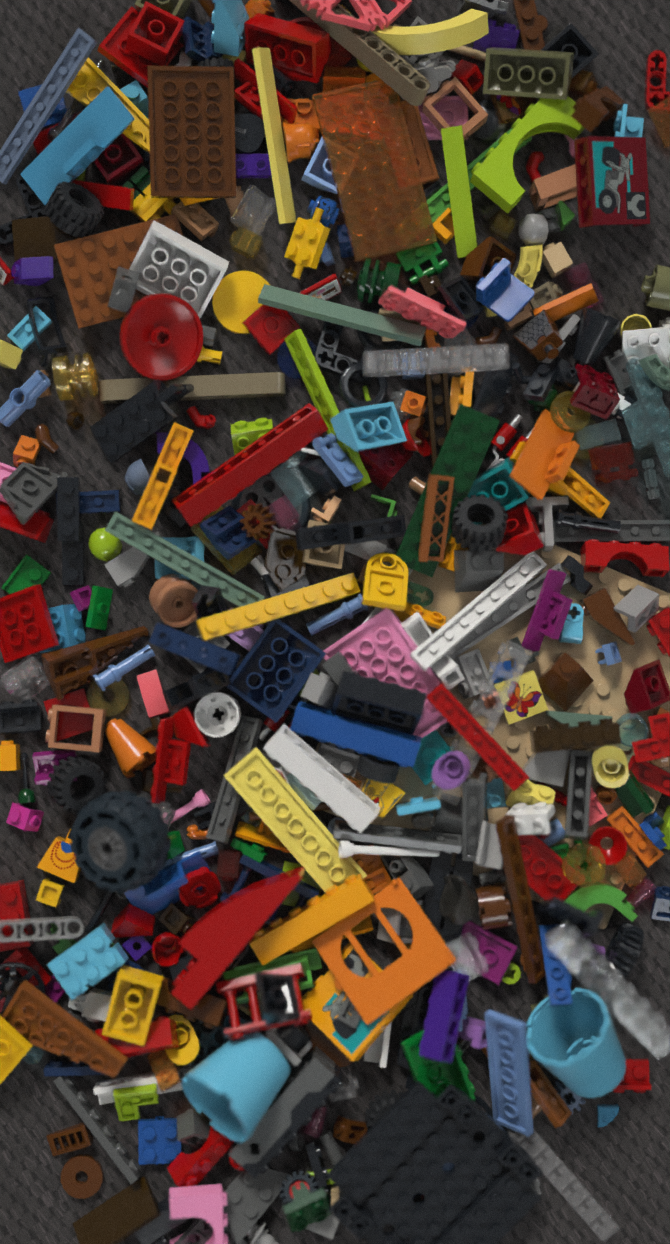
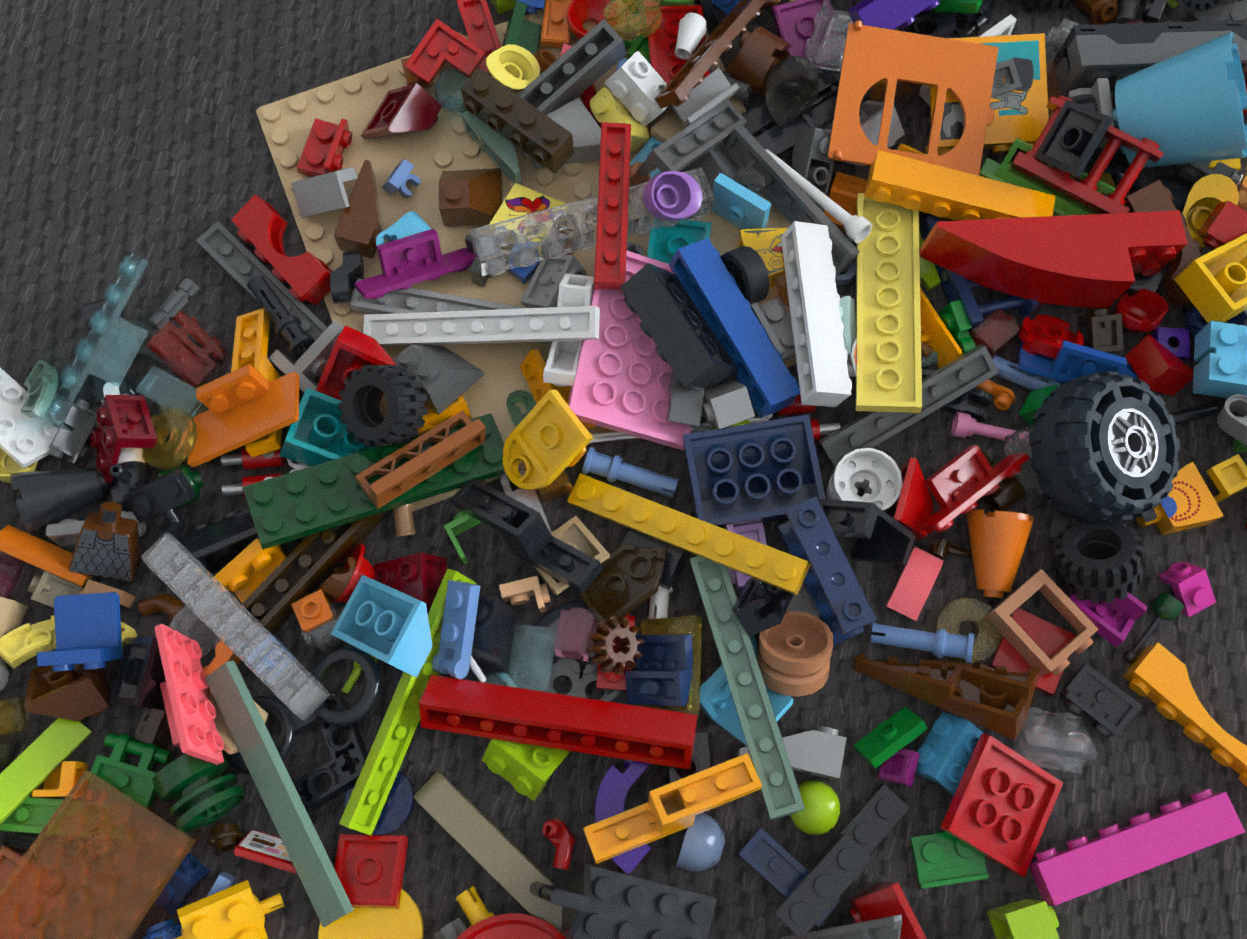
camera: 130 degrees left, 15 degrees down
(538, 878) = (690, 33): none -> white cone

